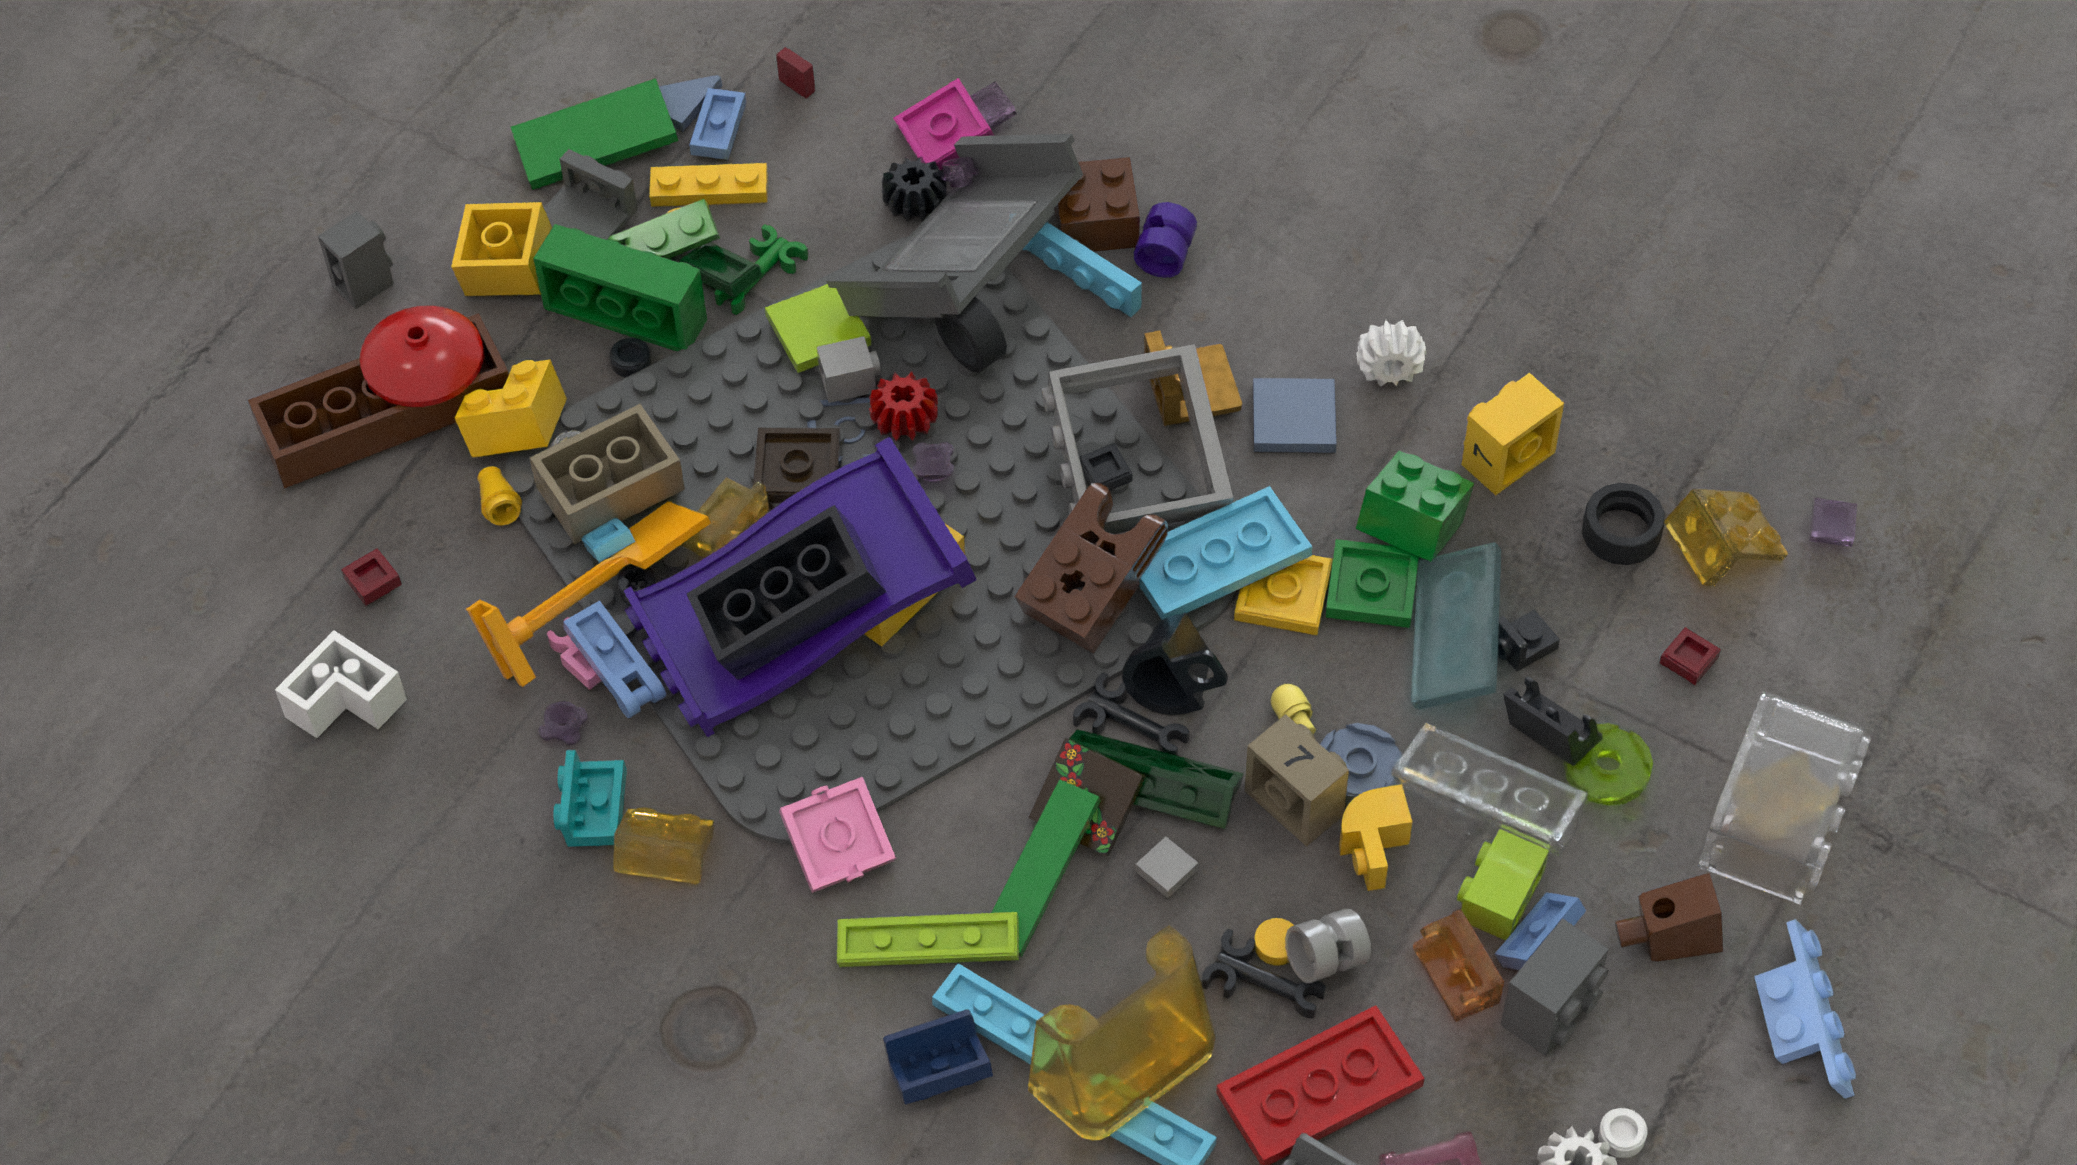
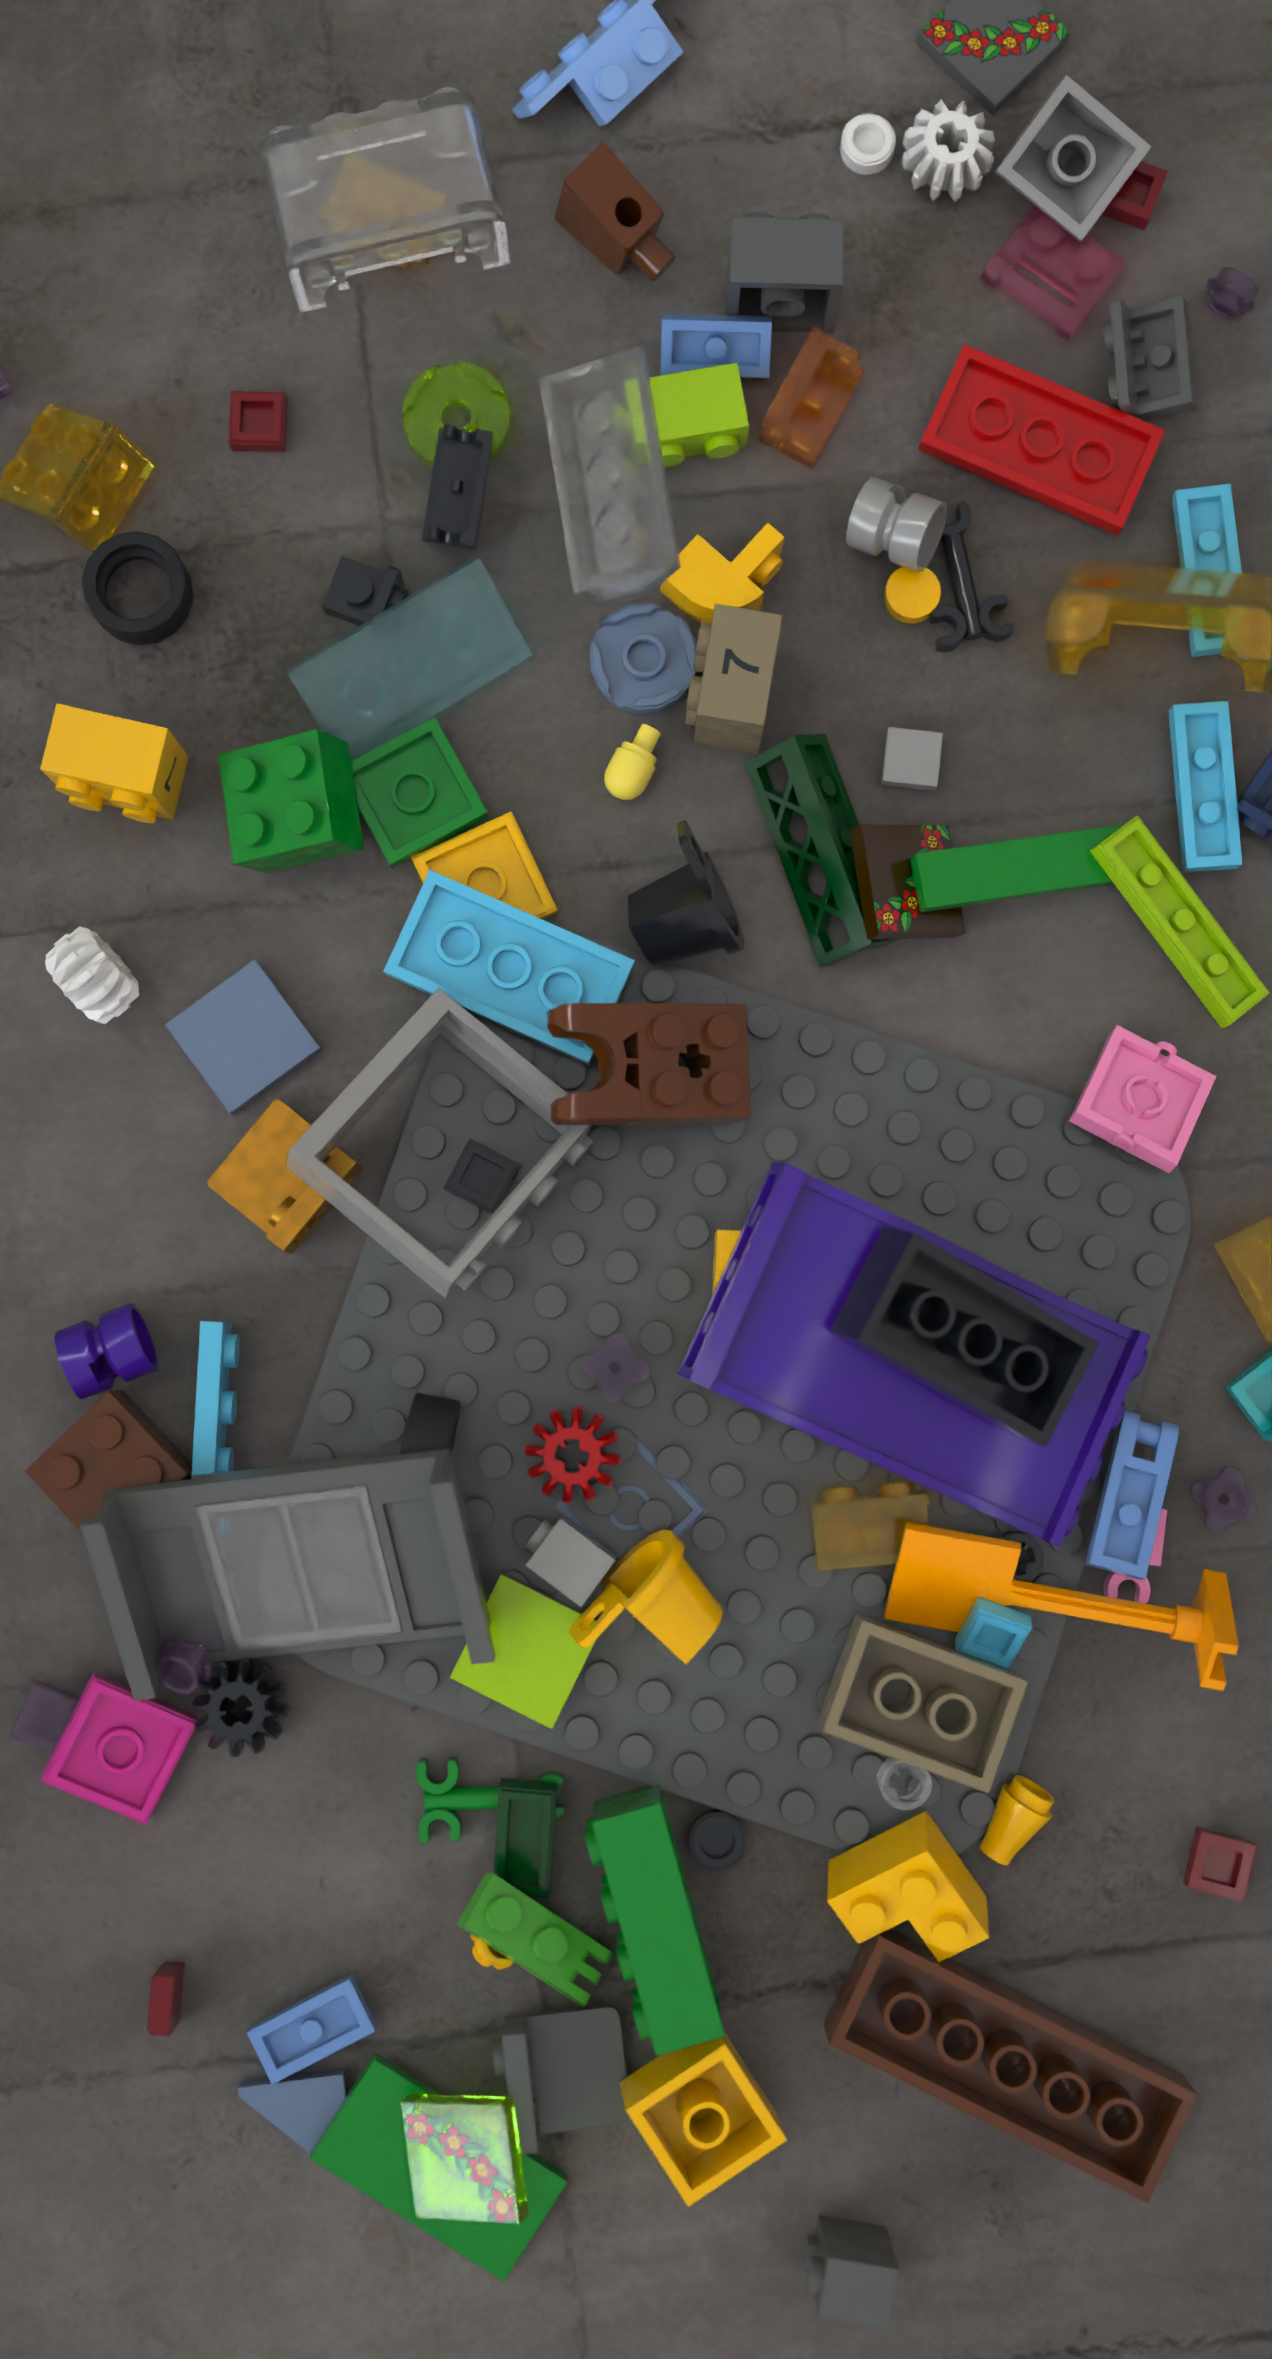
camera: 130 degrees left, 30 degrees up
(421, 356) = (931, 2015): red dish -> none
(589, 131) = (464, 2158): none -> clear neon green tile
(710, 182) = (406, 1964): yellow plate -> none
(784, 384) = (659, 1592): none -> yellow container
(794, 459) = (730, 1516): dark brown tile -> none
(1107, 704) = (769, 963): black bar -> none

